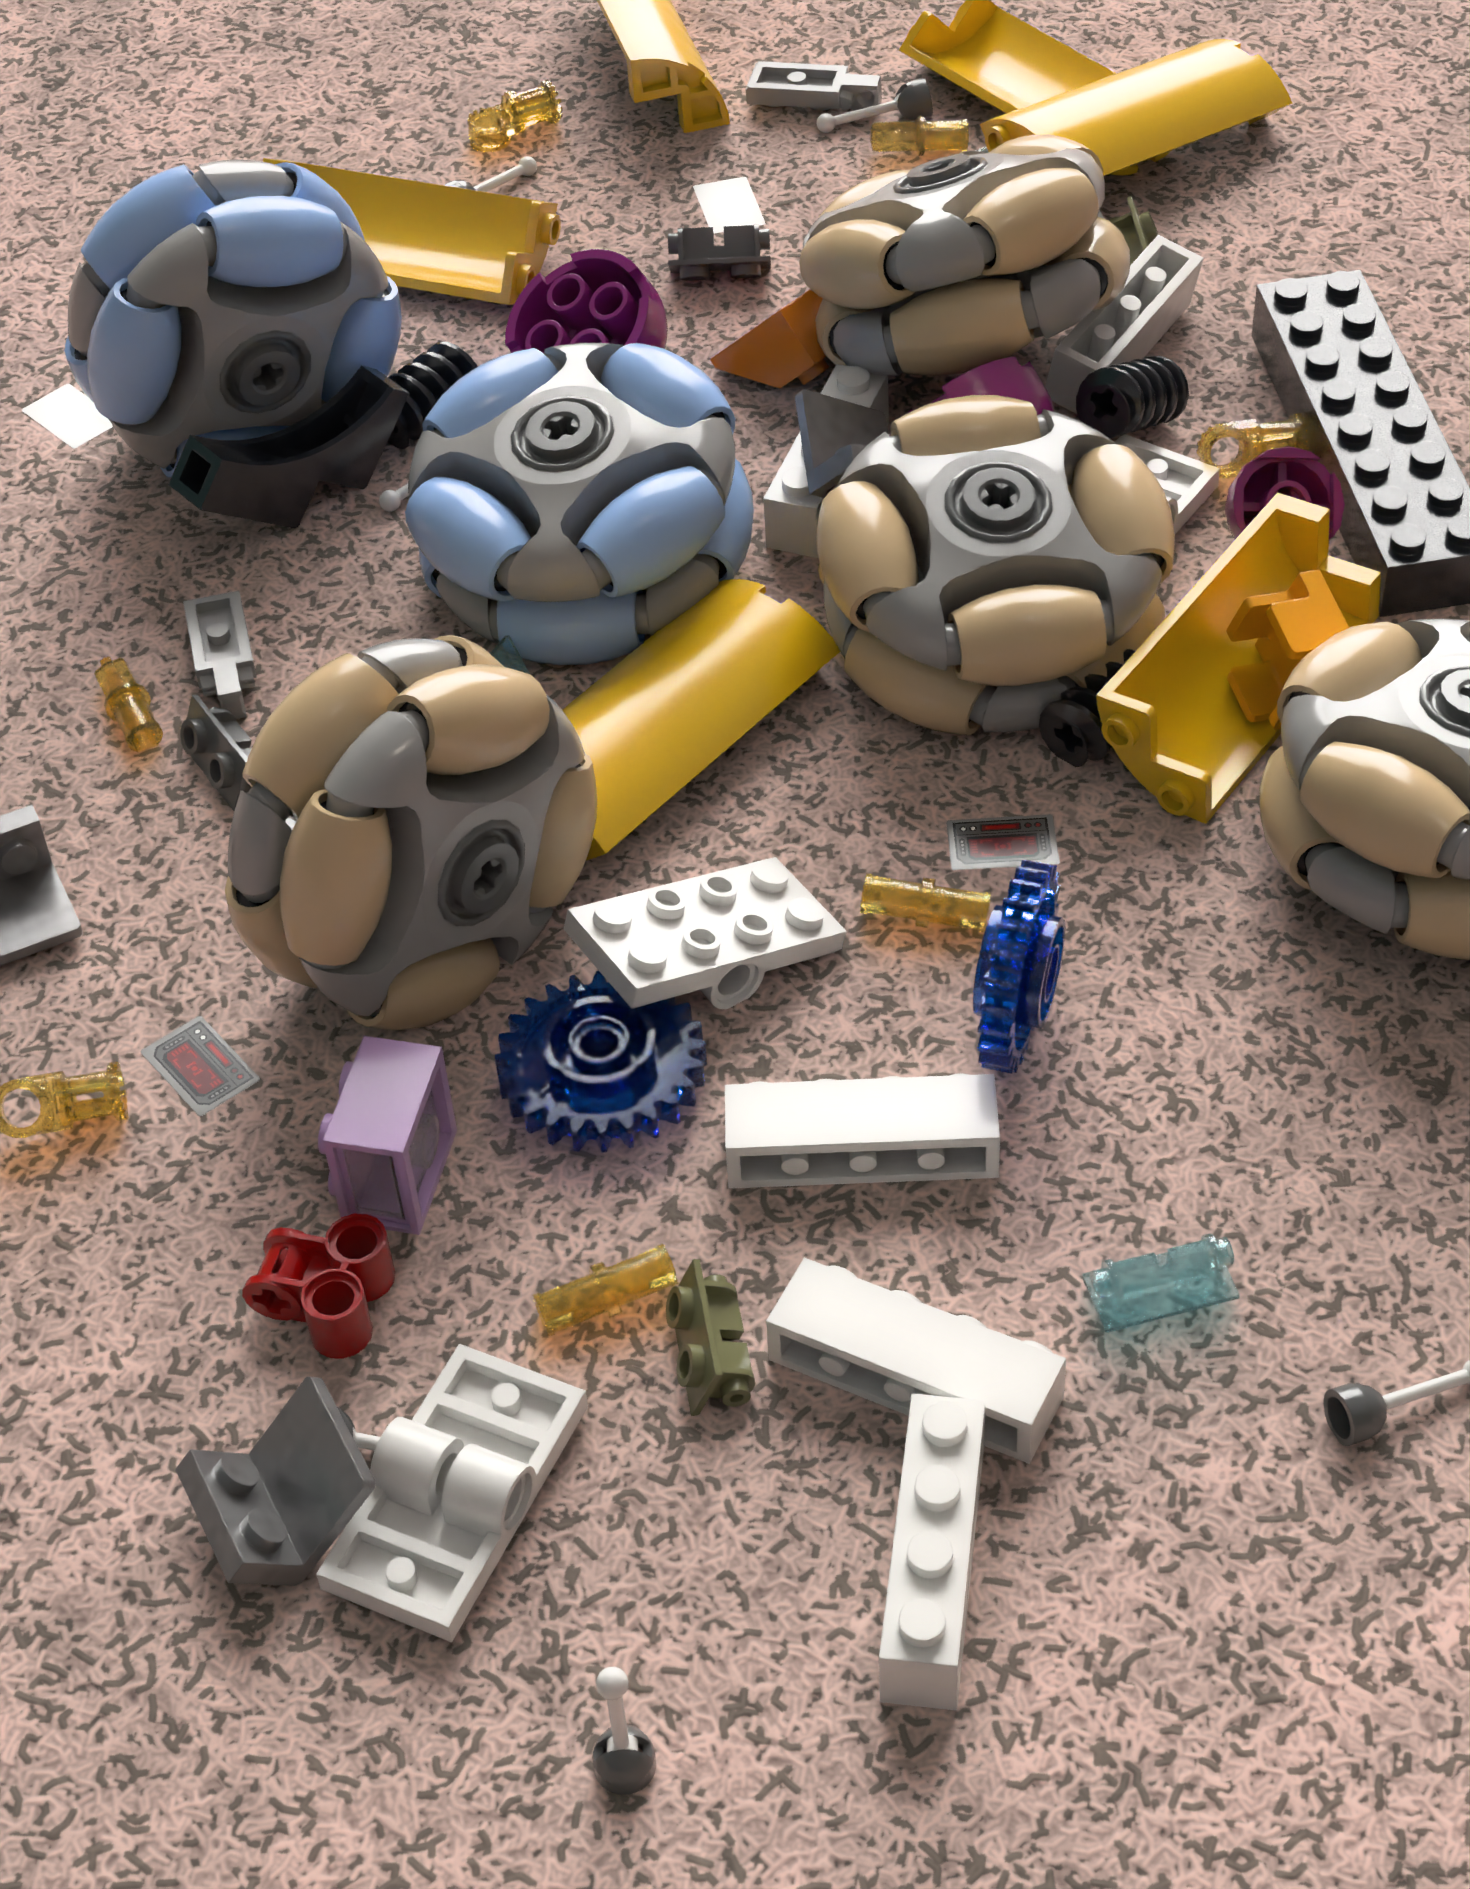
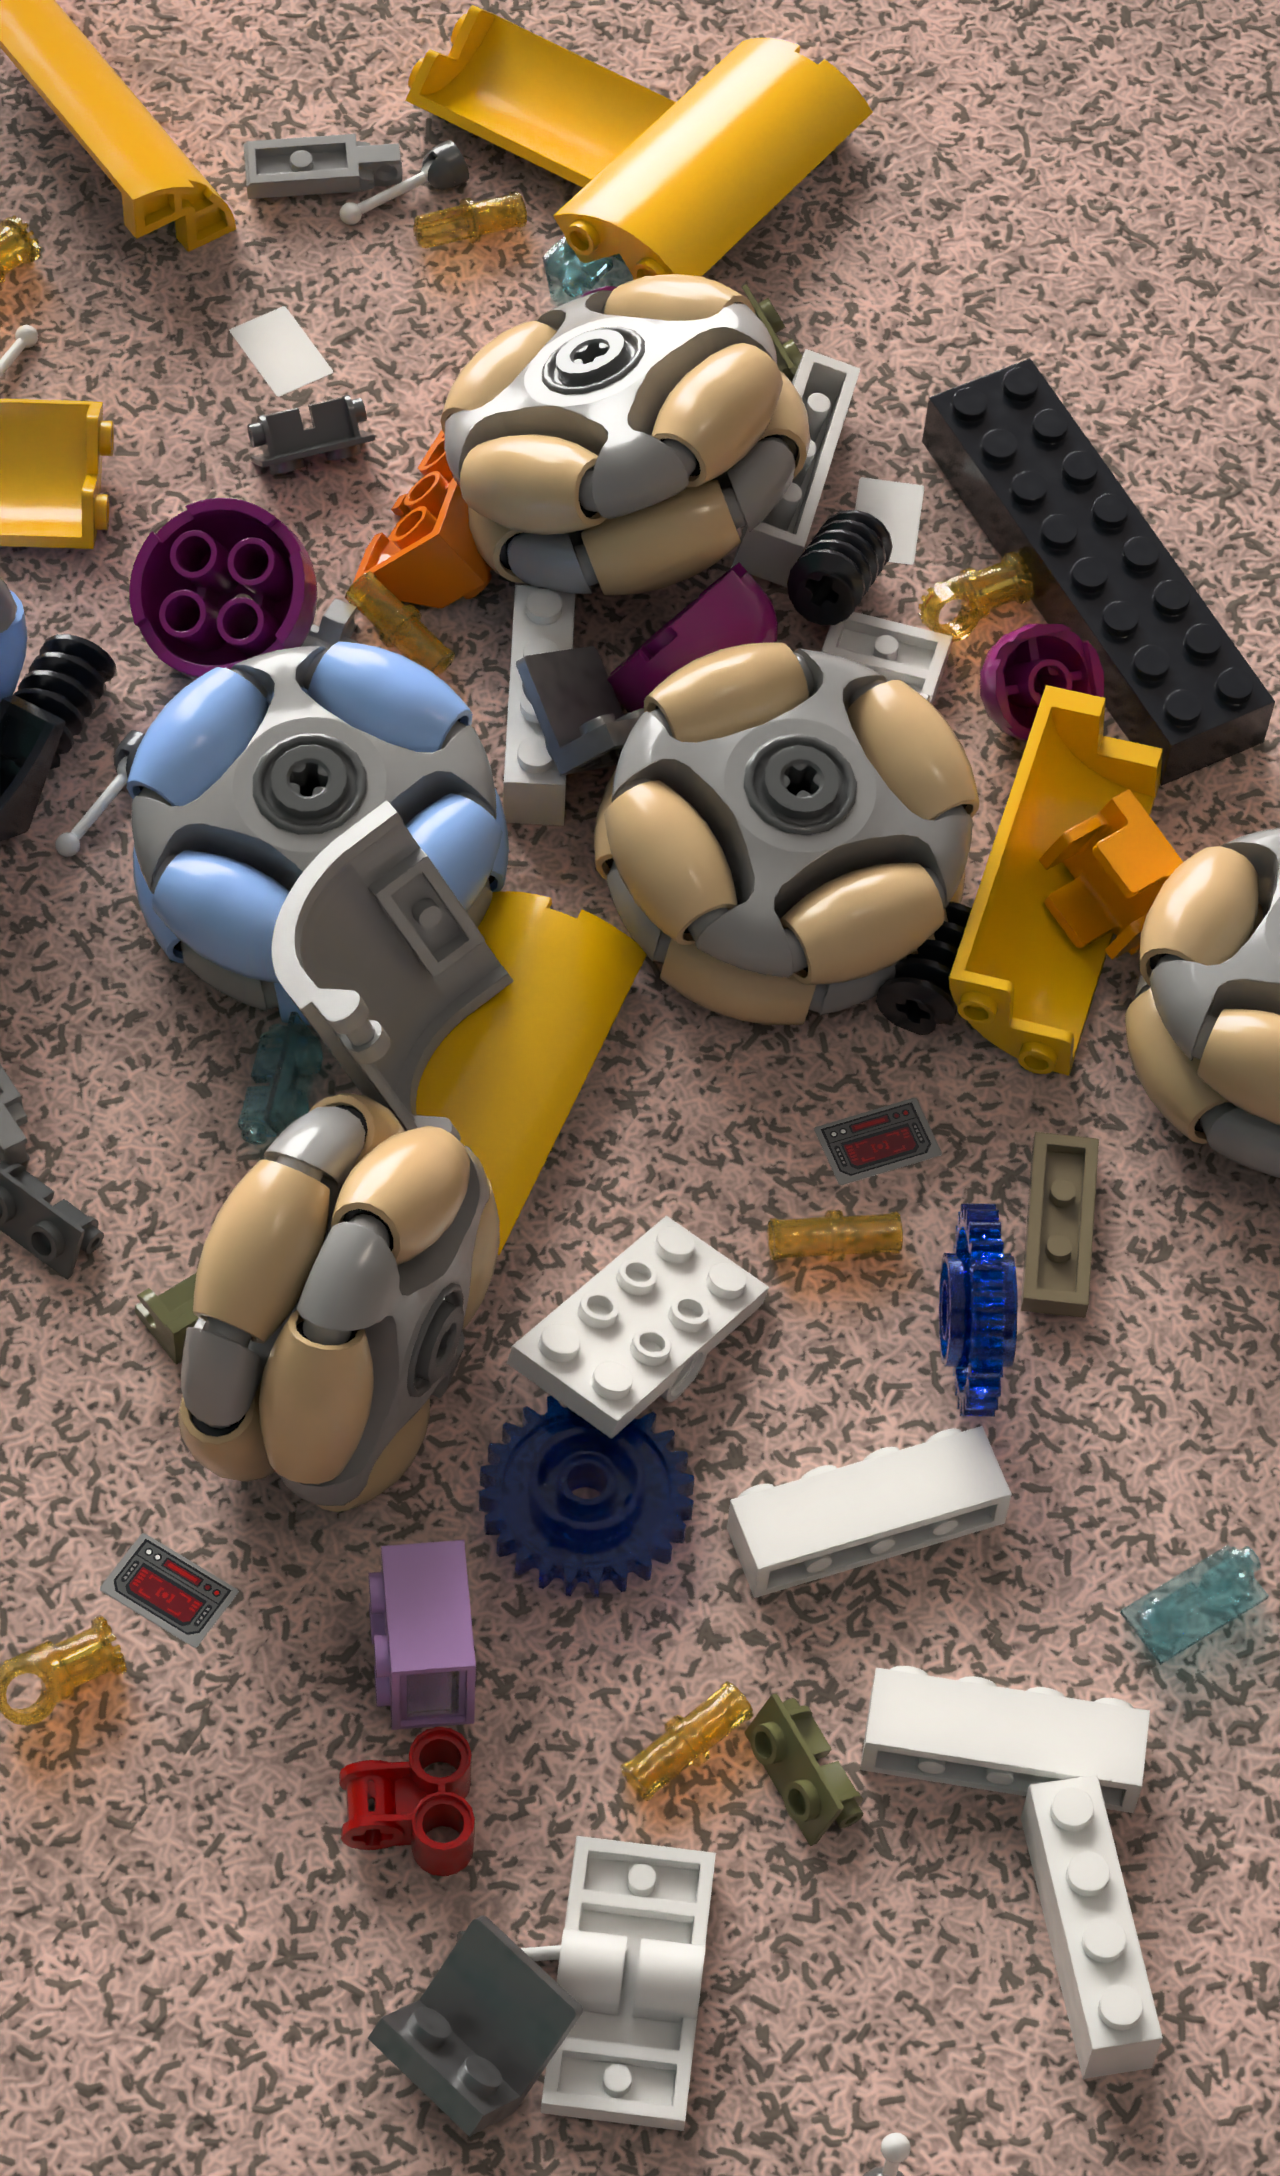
camera: 25 degrees left, 10 degrees up
(564, 572) = (382, 959): none -> light grey hinge
(737, 389) = (399, 624): none -> clear yellow pin
(1145, 935) = (1060, 1225): none -> dark tan plate
(1207, 385) = (898, 508): none -> white sticker

